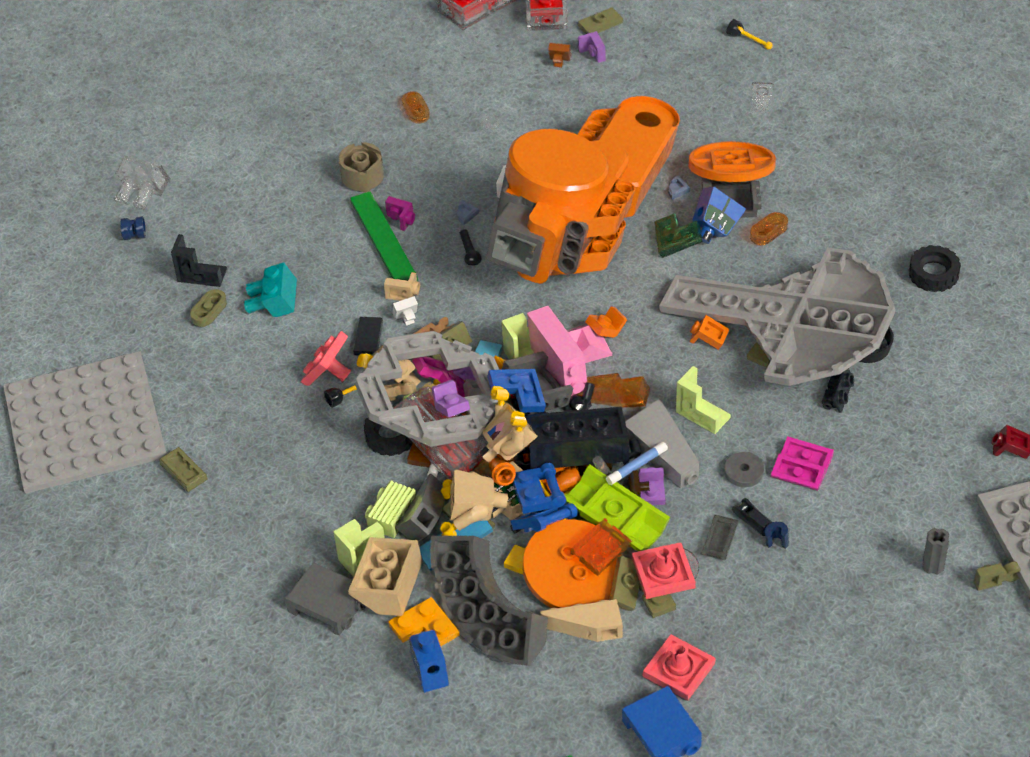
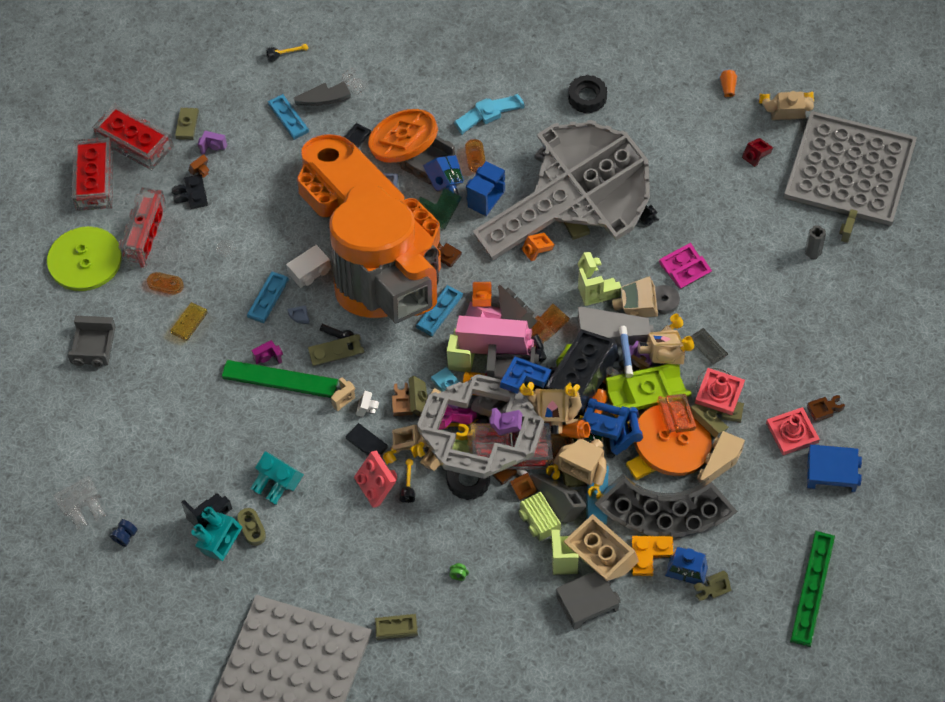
camera: 55 degrees left, 10 degrees up
(176, 287) = (218, 535): none -> teal brick
(279, 482) = (459, 569): none -> bright green plate
(311, 98) = (92, 340): none -> dark grey panel
(361, 167) = (202, 350): dark tan brick -> none
(391, 143) = (189, 321): none -> clear yellow plate
(393, 44) = (84, 258): none -> lime plate
(413, 475) = (523, 486): none -> dark orange tile
(429, 697) = (716, 585): none -> olive plate
(447, 256) = (335, 350): none -> olive plate
(452, 55) = (143, 228): none -> clear brick
(464, 180) = (267, 297): none -> dark azure tile
(531, 69) = (195, 192): none -> black hinge
(567, 304) = (434, 318): none -> dark azure tile
(608, 354) = (513, 308): none -> dark grey slope
(633, 274) = (449, 254): none -> reddish brown plate
(677, 80) = (288, 117): none -> dark azure tile
(678, 495) = (667, 344): none -> tan torso
(697, 136) = (357, 134): none -> black tile
(719, 444) = (638, 299): none -> tan torso
(724, 85) = (323, 96): none -> dark grey slope
(724, 385) = (589, 264): none -> yellowish green tile
(730, 252) = (485, 188): none -> blue piece
(733, 679) = (823, 409): none -> reddish brown plate
(761, 523) = (717, 317): piece -> none
(832, 209) = (488, 111): none -> medium azure plate

